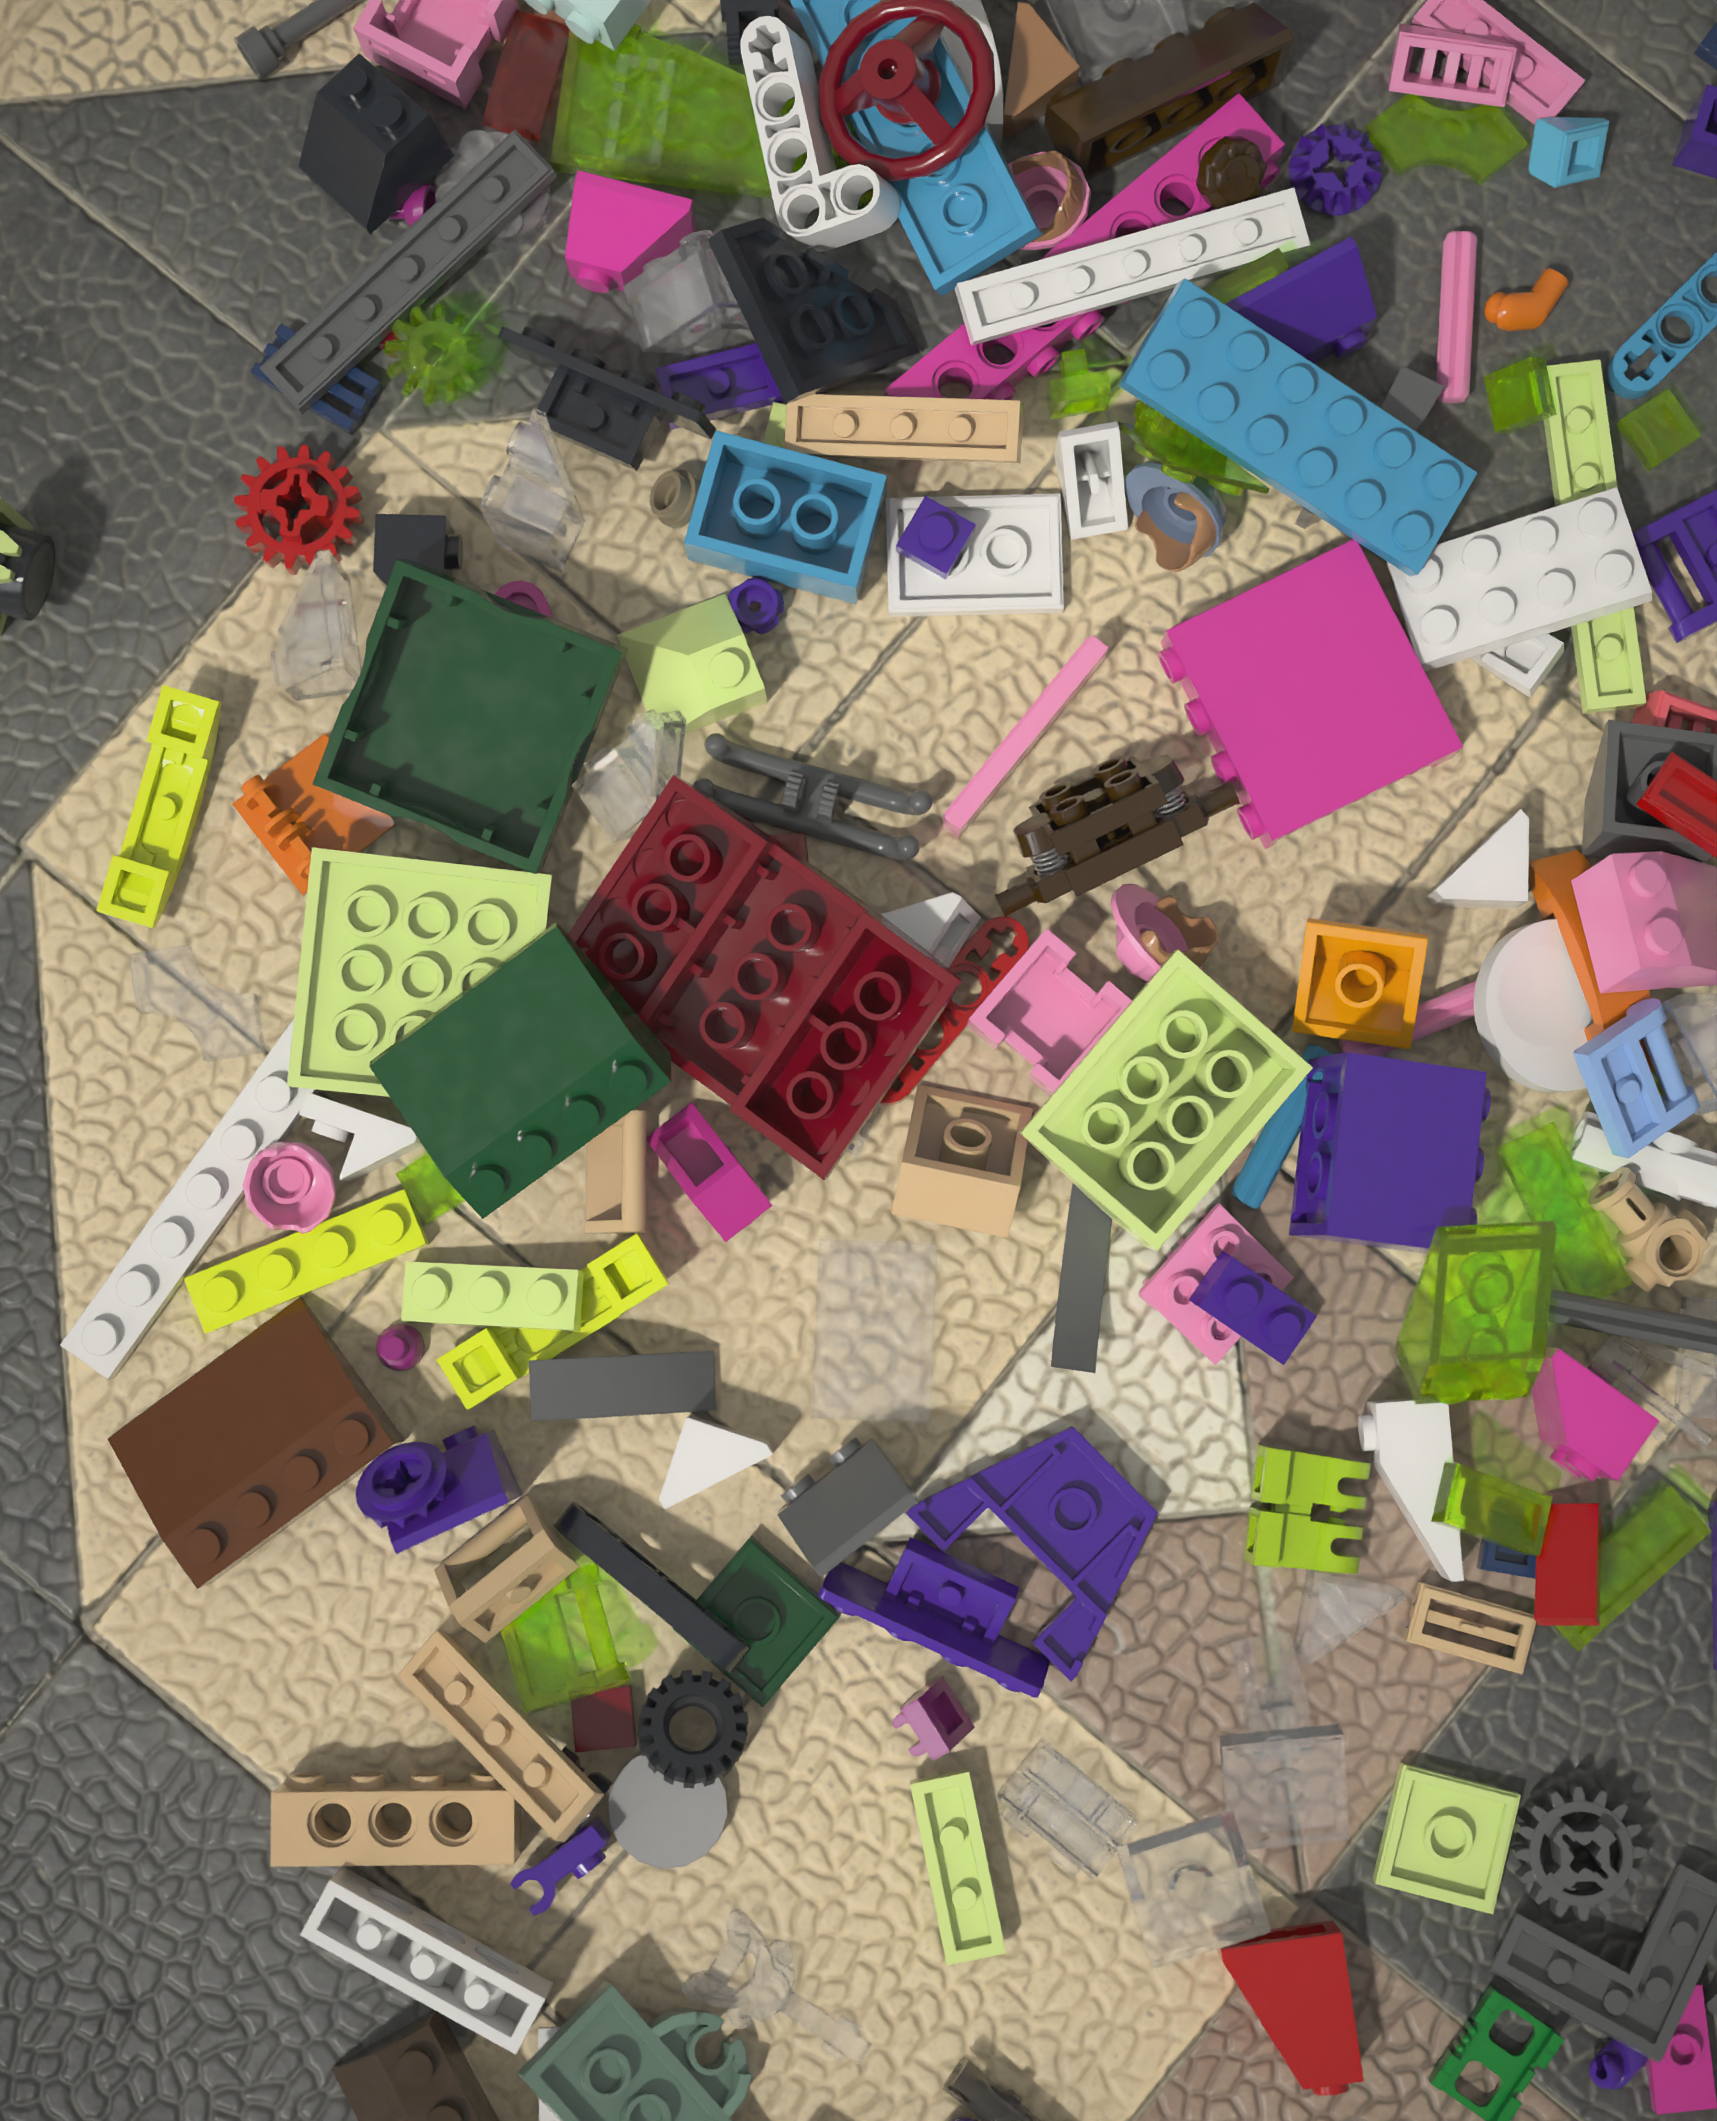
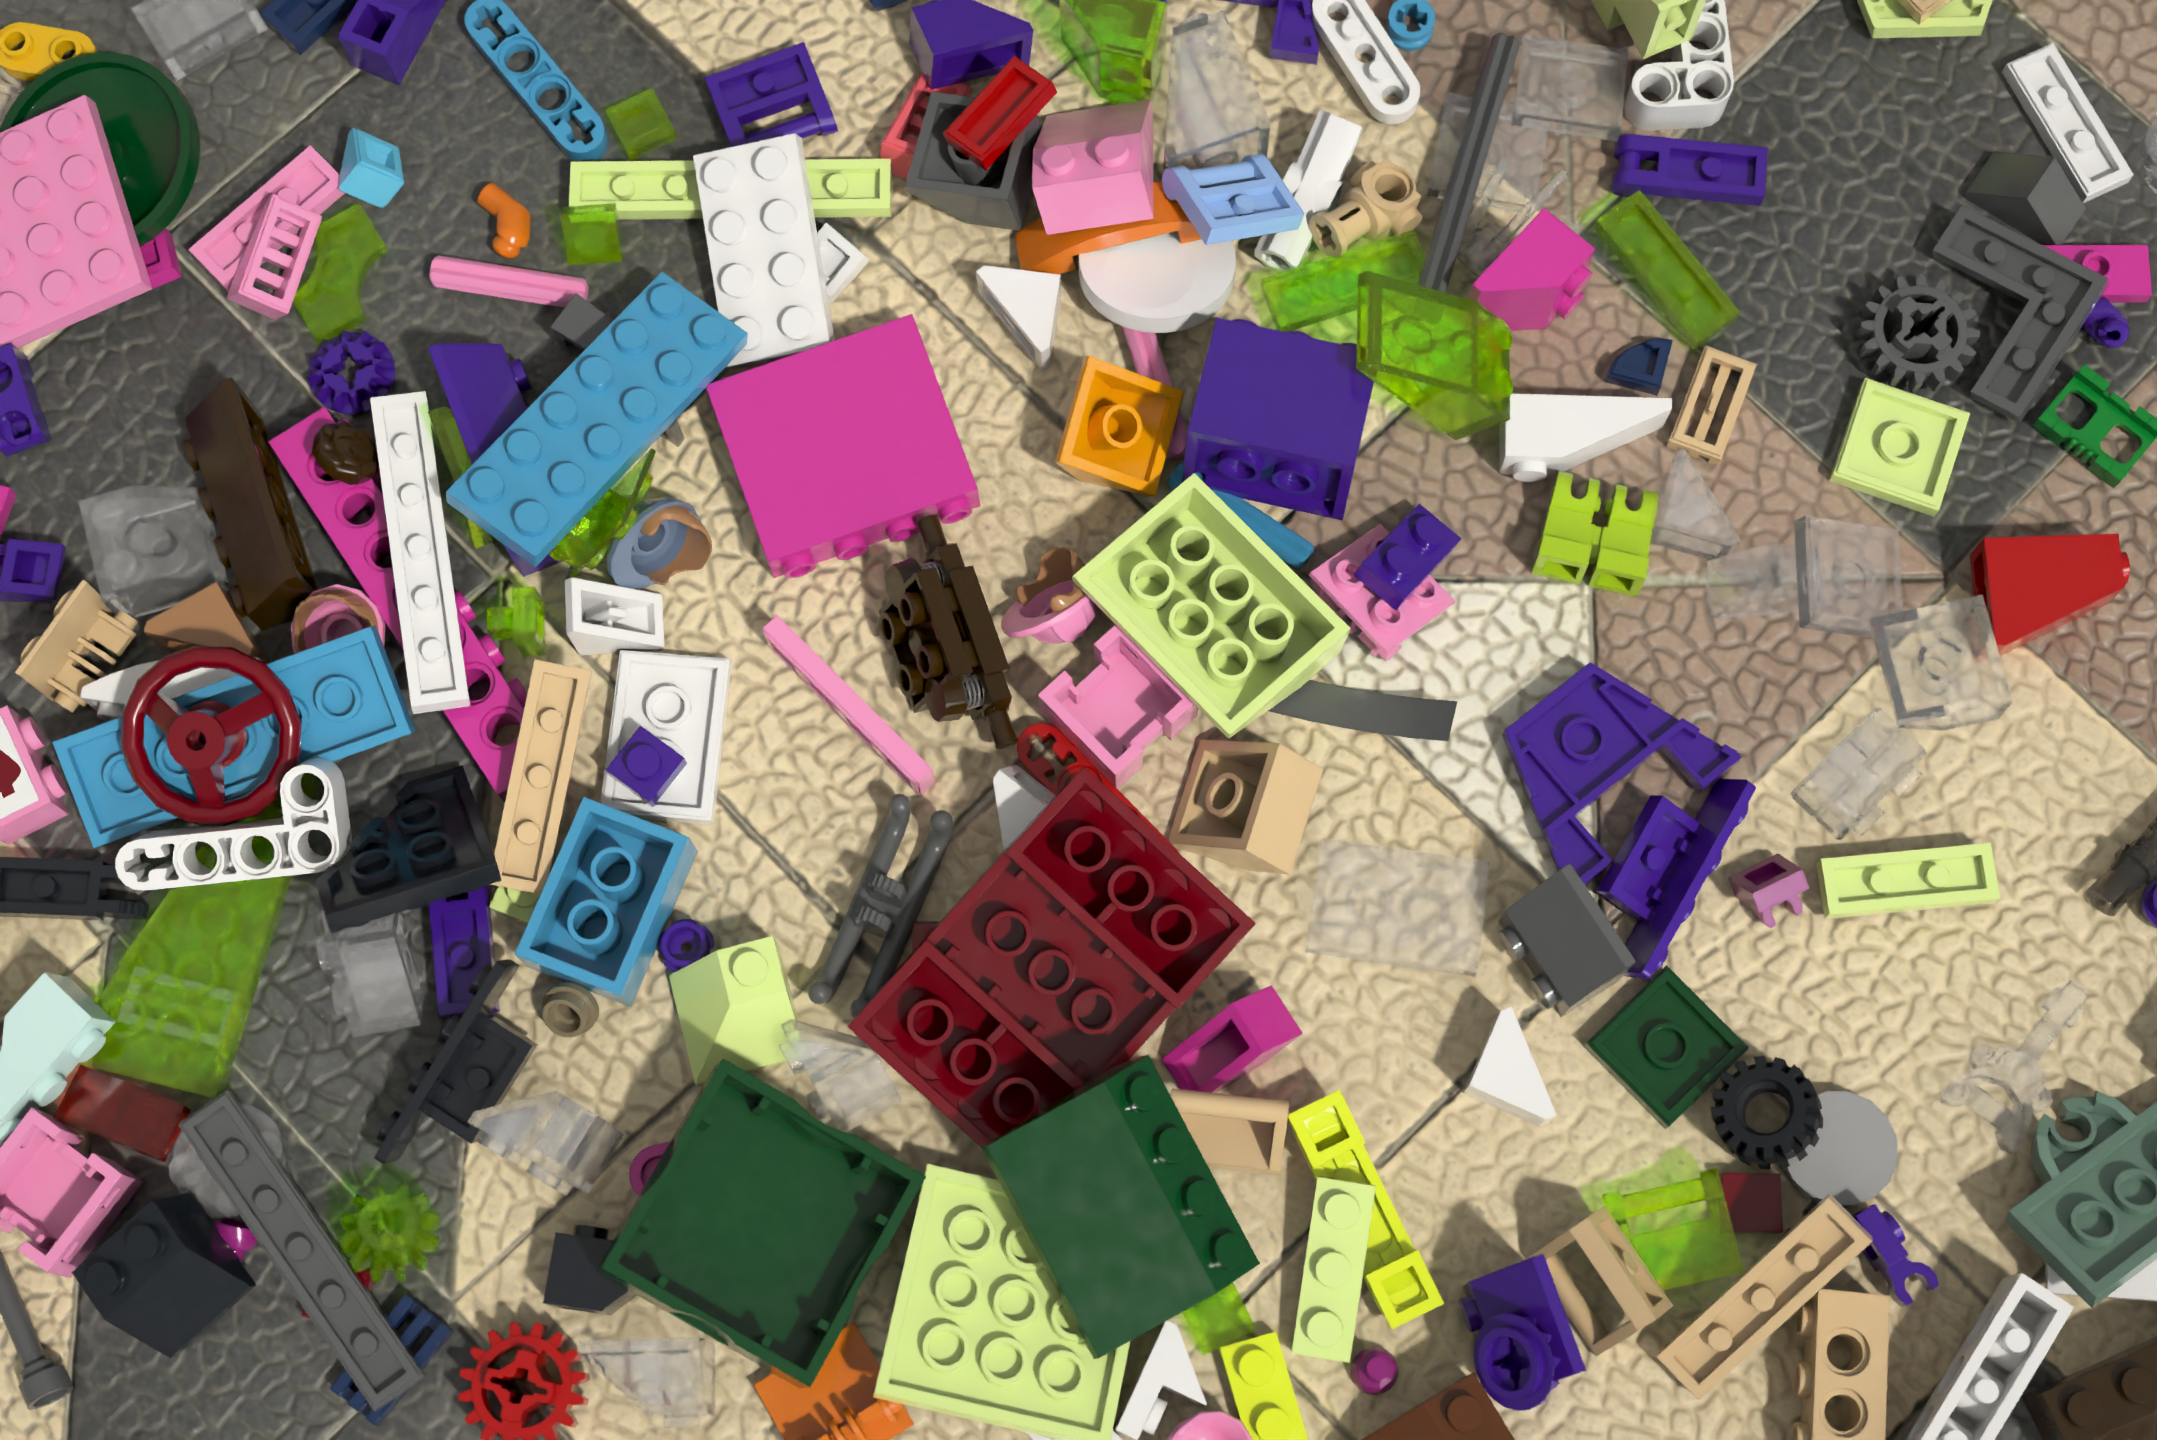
camera: 85 degrees left, 10 degrees down
(621, 229) = (298, 1028): dark pink slope -> none
(622, 1385) = (1431, 1151): dark grey slope -> none
(652, 1587) = (1628, 1138): black beam -> none
(1491, 1509) = (1608, 367): clear neon green tile -> none
(1570, 1567) = (1662, 310): red tile -> none

